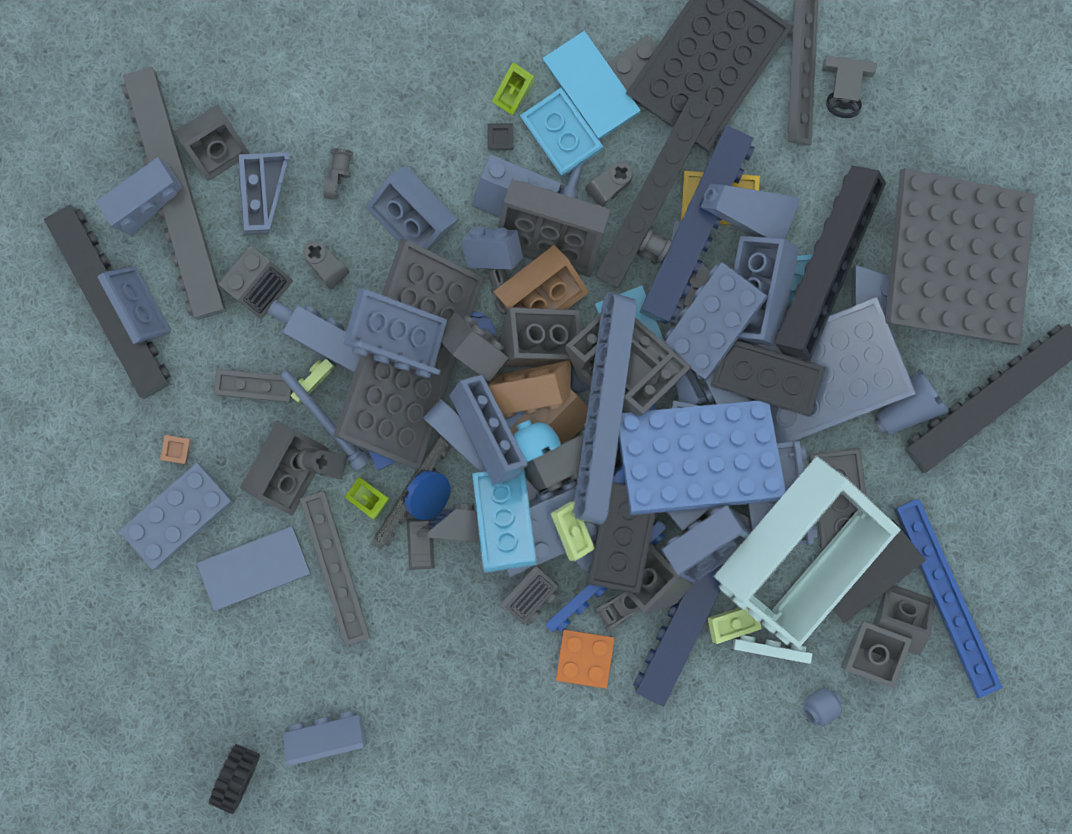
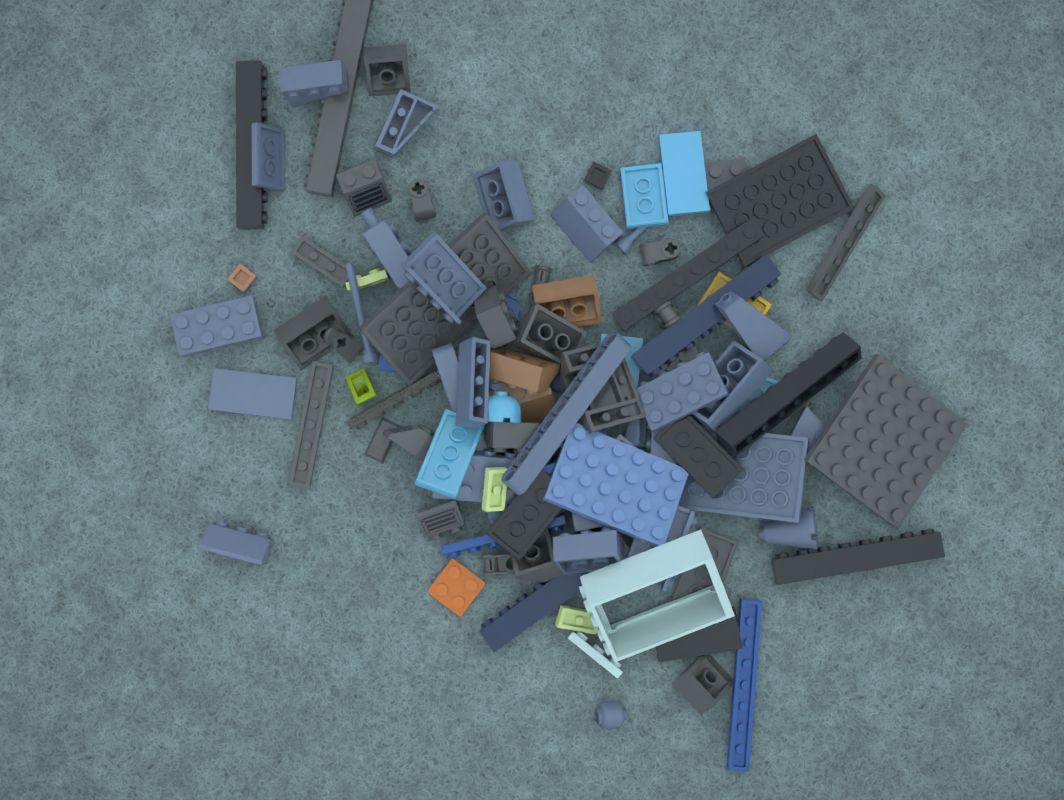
camera: 30 degrees right, 0 degrees up
(234, 779) = (157, 537): black tyre -> none
(339, 169) = (468, 137): dark grey connector -> none
(427, 495) = (405, 407): blue tile -> none
(492, 248) = (547, 253): sand blue brick -> none
(513, 88) = (626, 146): lime slope -> none
(554, 219) = (595, 251): dark grey slope -> none
(847, 83) = (871, 271): dark grey piece -> none
(876, 654) = (669, 697): dark grey slope -> none

